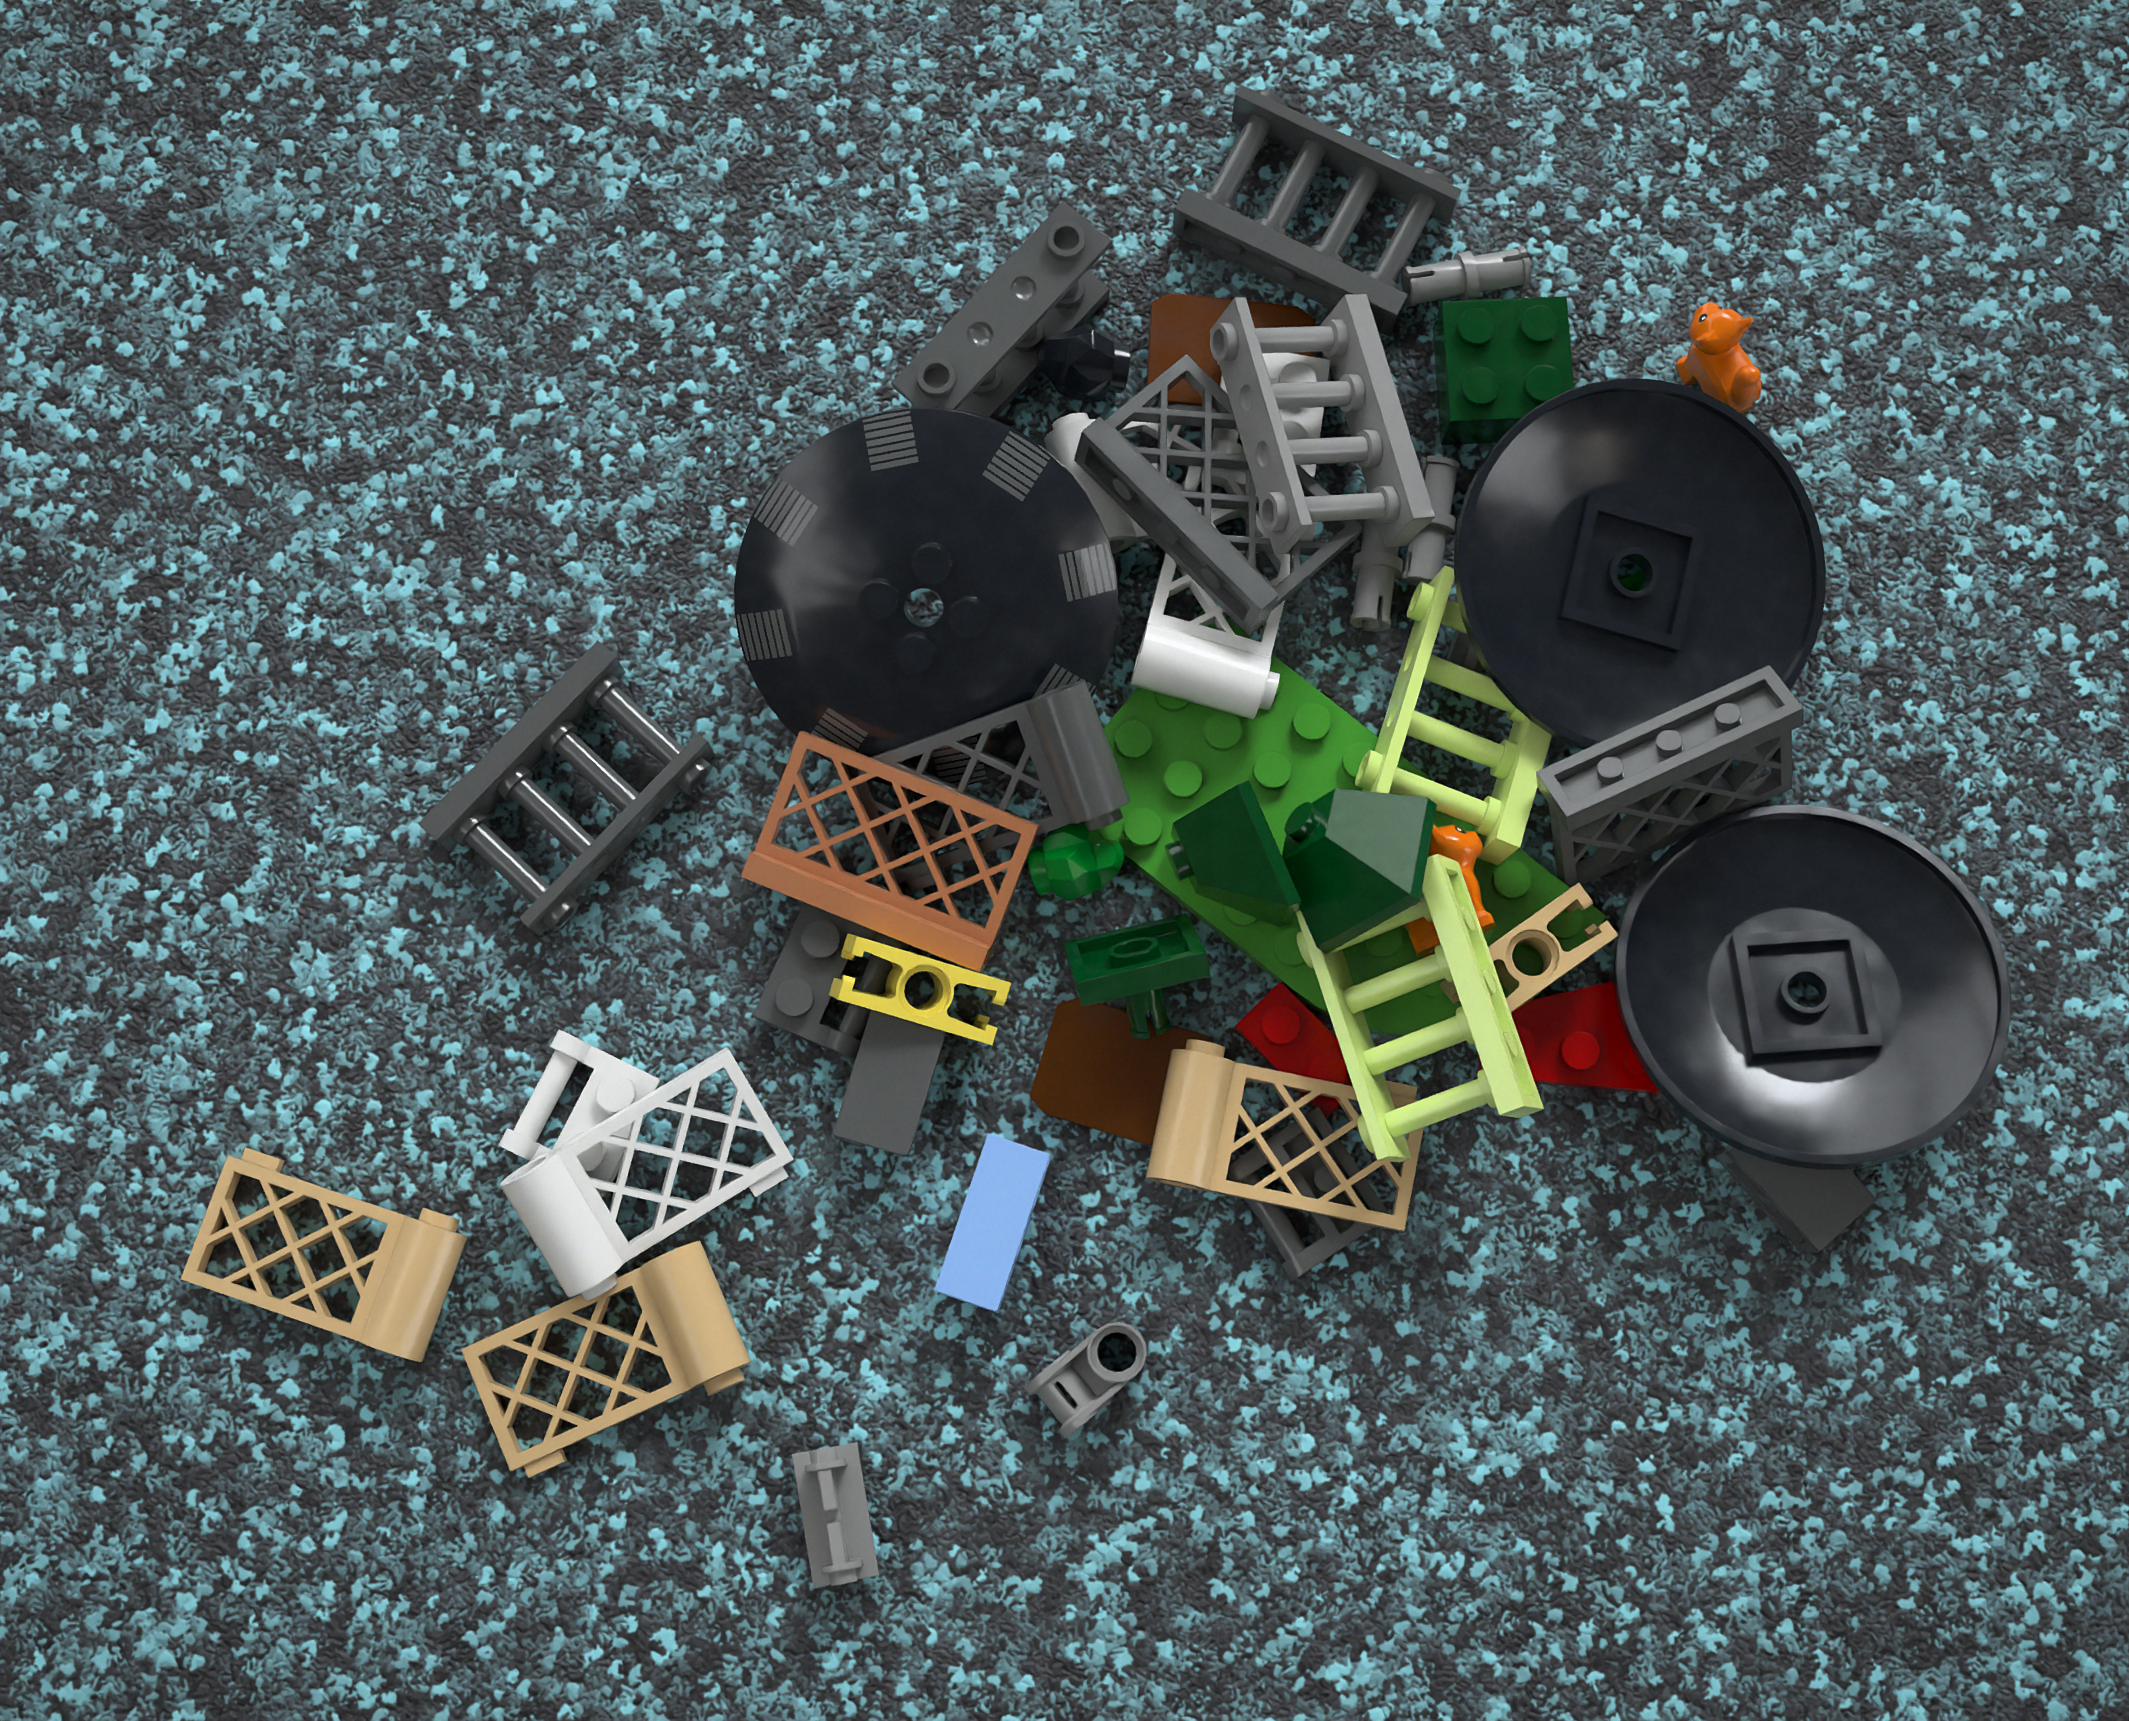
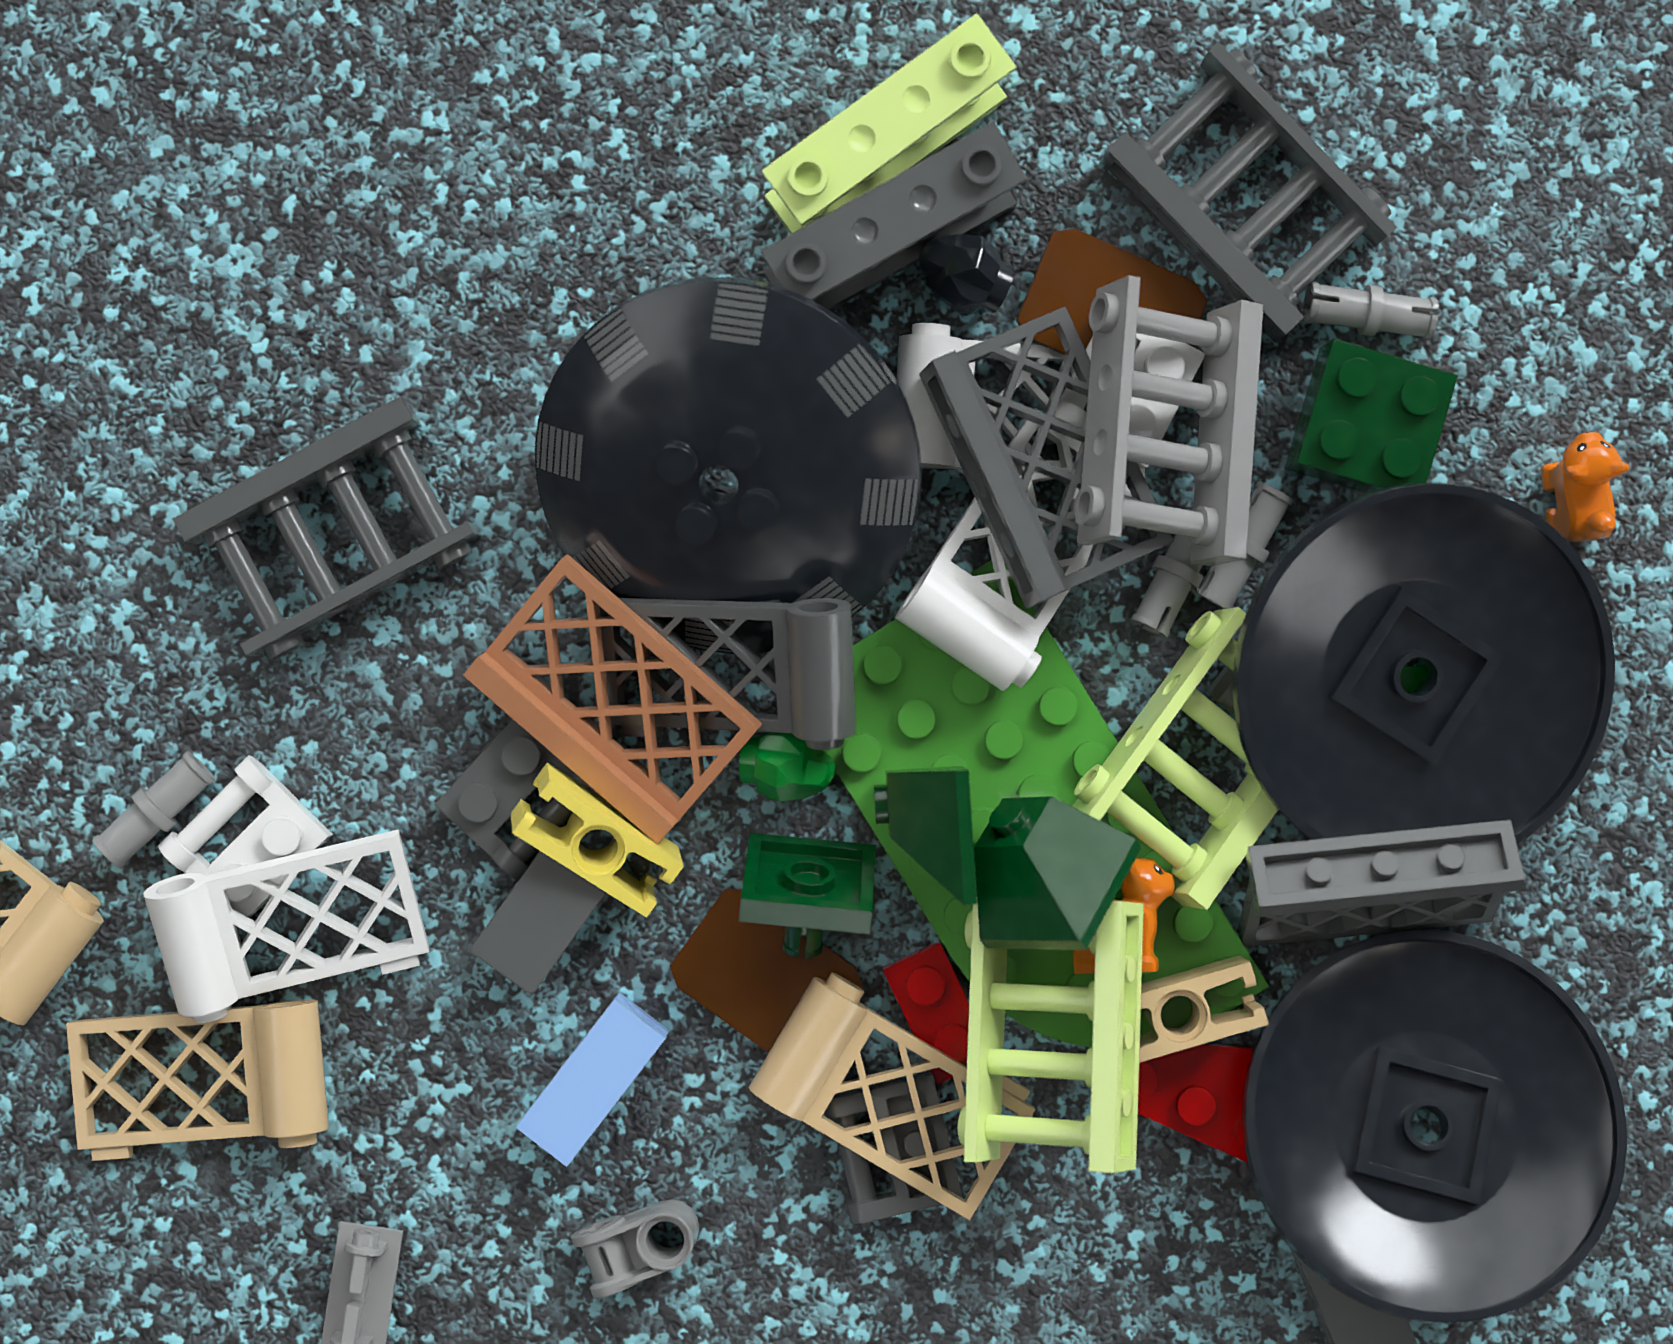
camera: 10 degrees right, 10 degrees up
(484, 1111) = (154, 809): none -> light grey pin
(969, 240) = (891, 126): none -> yellowish green fence

